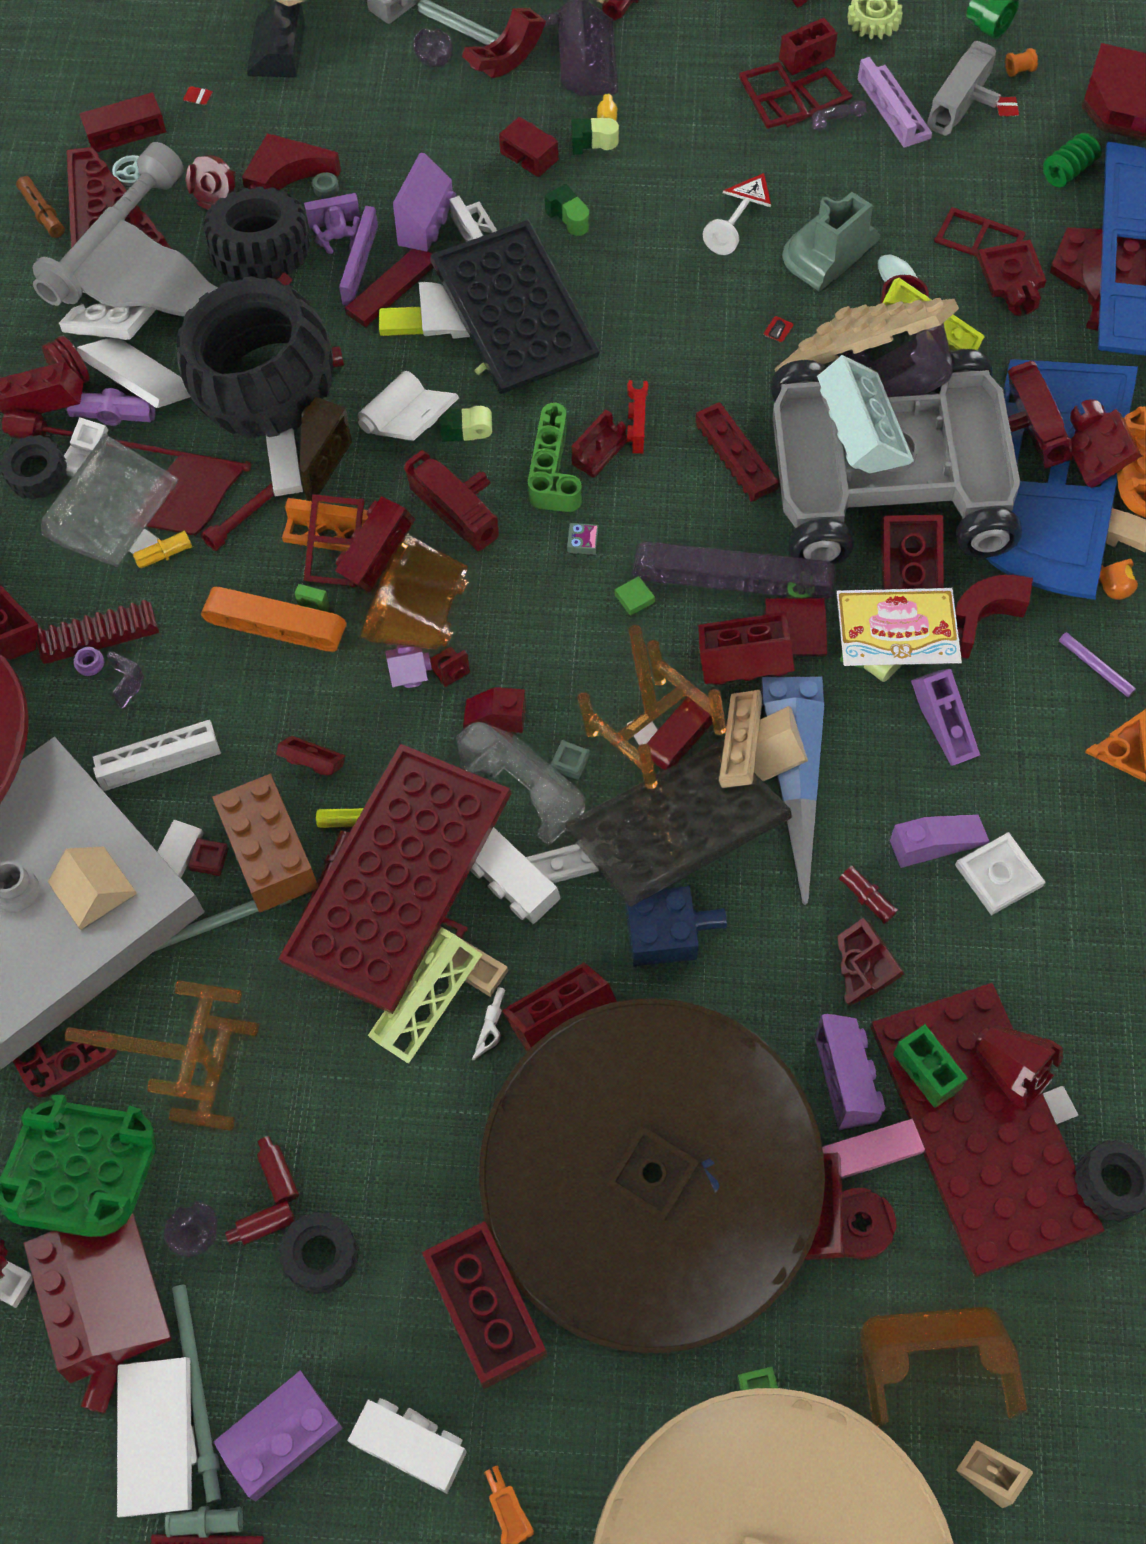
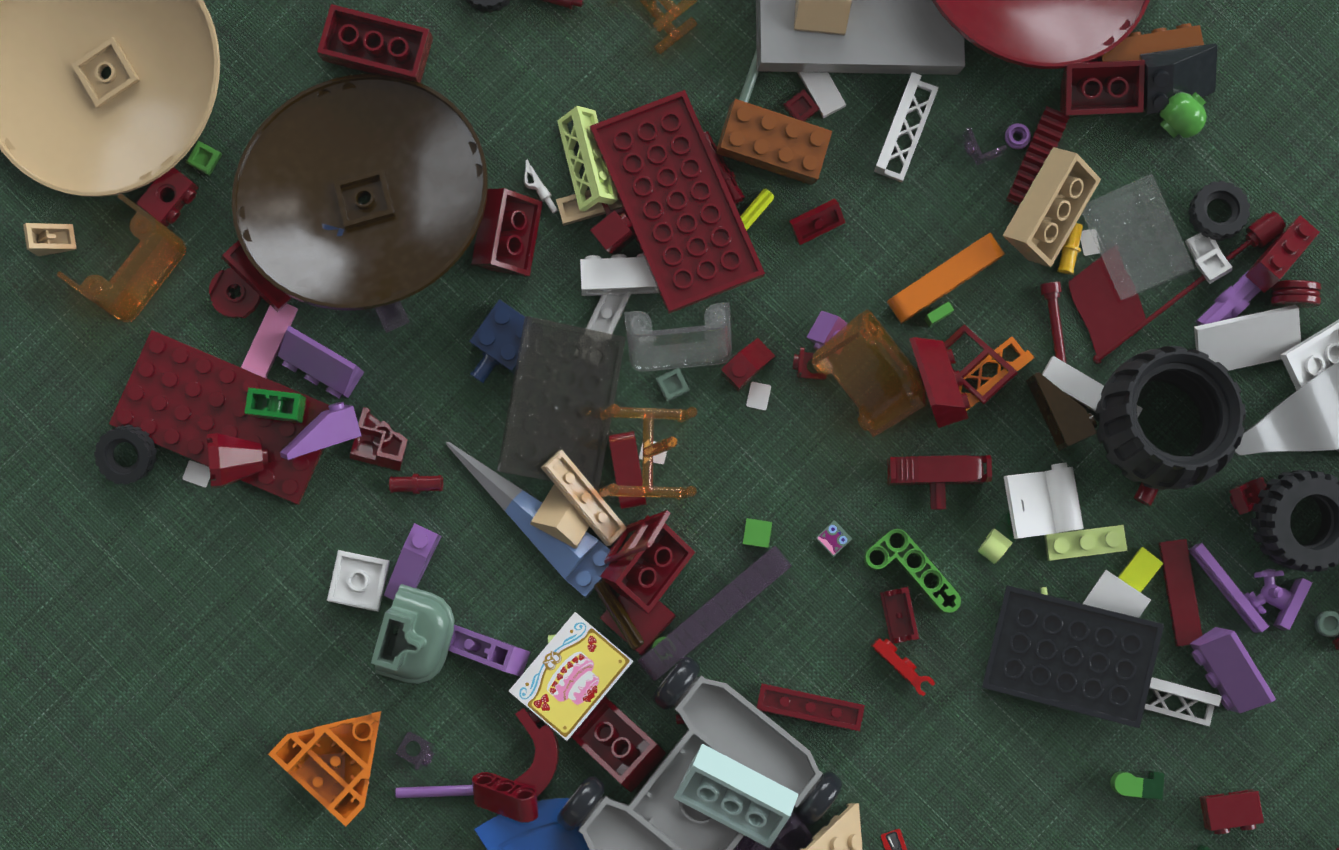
camera: 135 degrees right, 20 degrees up
(136, 577) = (1052, 206): none -> tan brick
(398, 358) = (1085, 542): none -> yellowish green plate
(475, 904) = (614, 232): none -> dark red piece
(516, 682) = (758, 396): none -> white sticker
(753, 650) = (641, 526): none -> dark red window
(810, 635) = (619, 614): none -> dark brown axle
(853, 1373) = (154, 198): none -> dark red brick
(908, 1005) = (325, 430): none -> medium lavender slope
(1000, 778) = (422, 636): none -> sand green piece
(1041, 608) = (505, 797): none -> dark red beam
(1082, 692) = (425, 755): none -> clear purple bracket

